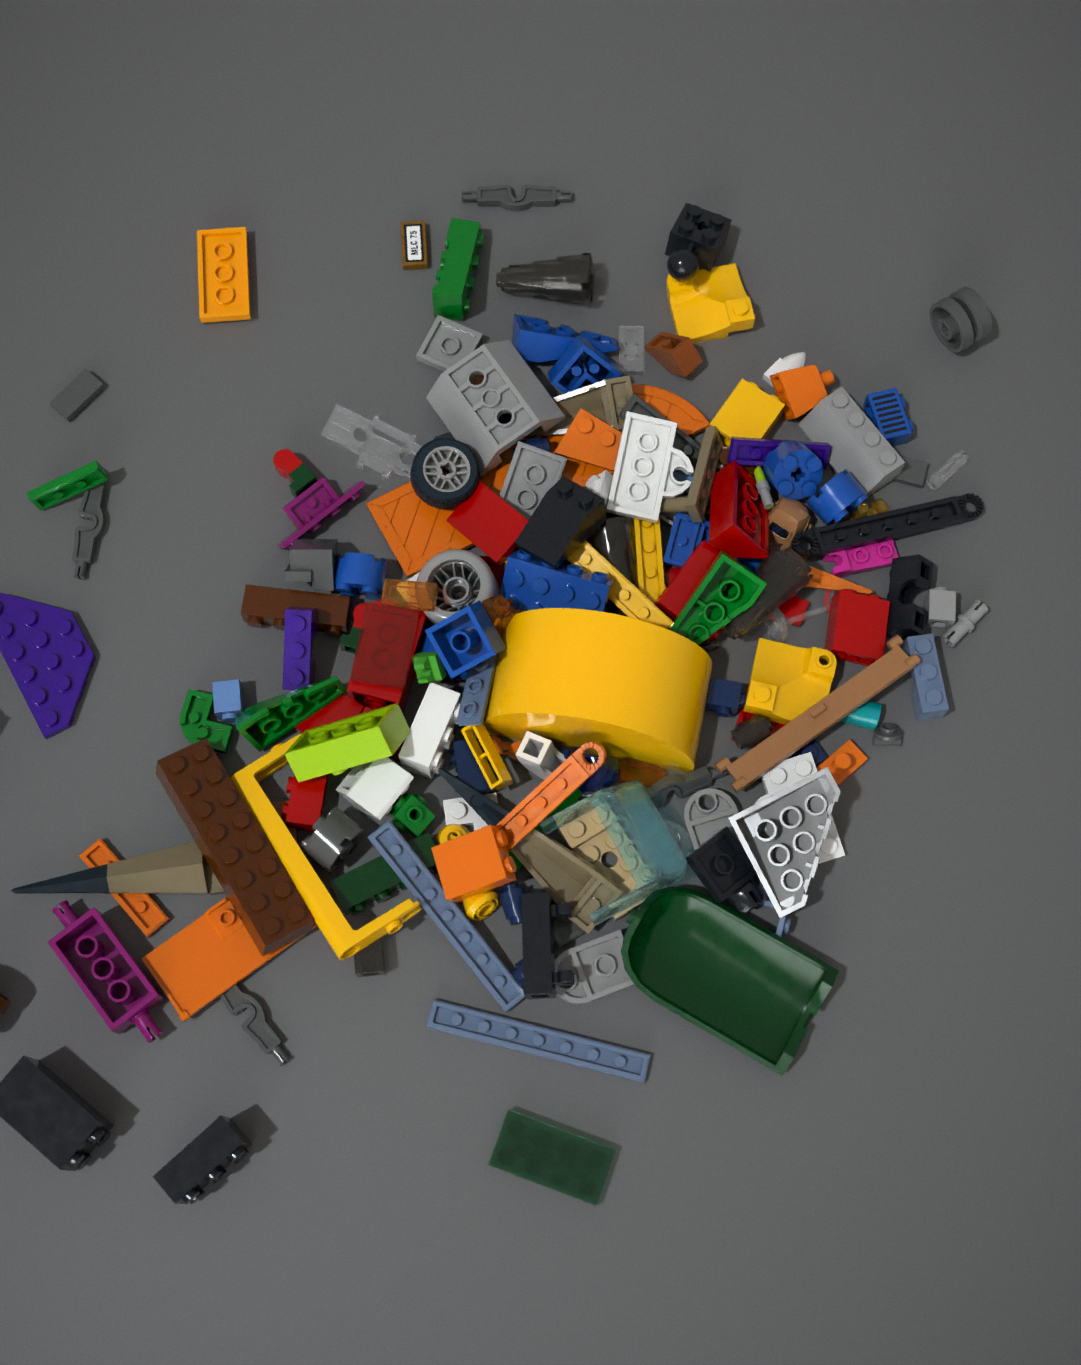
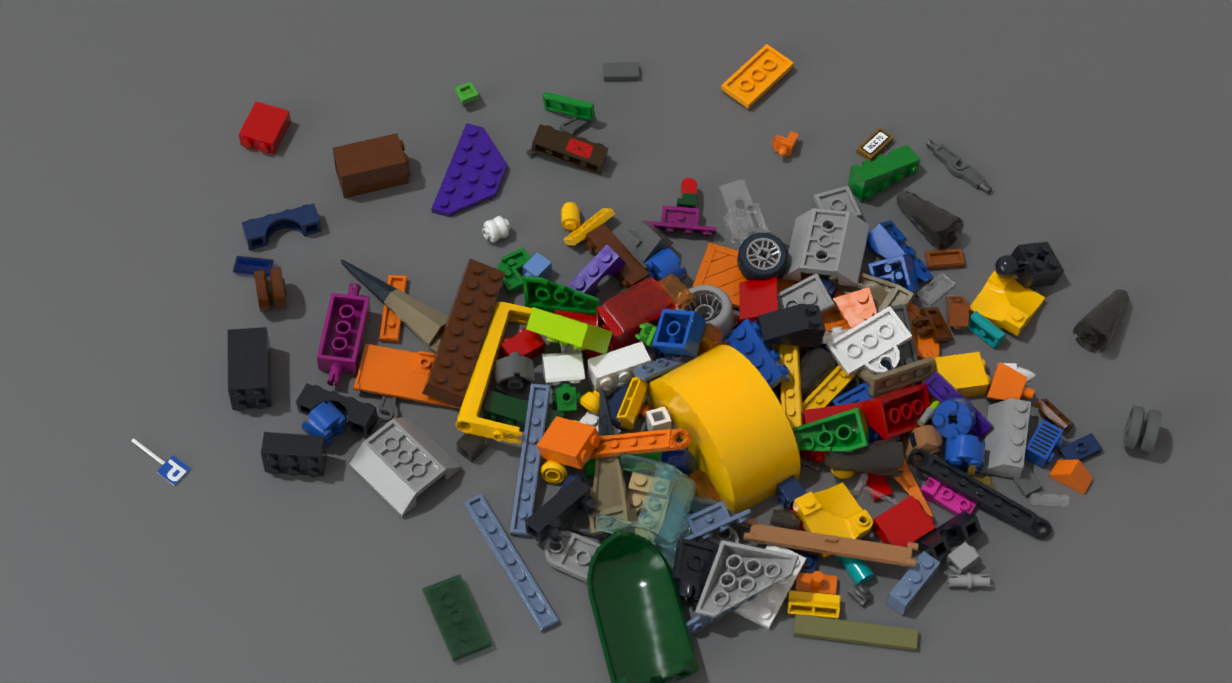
camera: 45 degrees right, 15 degrees down
(85, 1306) = (172, 470): none -> piece
(120, 532) = (569, 148): none -> dark brown brick
(138, 695) = (496, 229): none -> white piece
(158, 1074) = (360, 415): none -> black arch
(197, 1092) = (325, 421): none -> blue brick
(199, 607) = (570, 216): none -> yellow brick
(231, 601) = (595, 221): none -> yellow plate
(323, 1049) = (402, 463): none -> light grey slope
(331, 327) = (783, 145): none -> orange piece
(439, 791) = (591, 401): none -> yellow cone
(604, 309) = (944, 259): none -> dark orange tile
(669, 387) = (934, 324): none -> reddish brown hinge
(690, 804) = (713, 519): none -> sand blue bracket
(720, 348) = (986, 330): none -> teal brick
(814, 241) = (1099, 325): none -> clear smoke cone
(858, 378) = (1049, 411): none -> reddish brown plate
(862, 790) = (813, 604): none -> yellow piece
(921, 392) = (1081, 448): none -> dark blue plate
(922, 779) = (855, 632): none -> olive tile
(939, 425) = (1072, 474): none -> orange slope

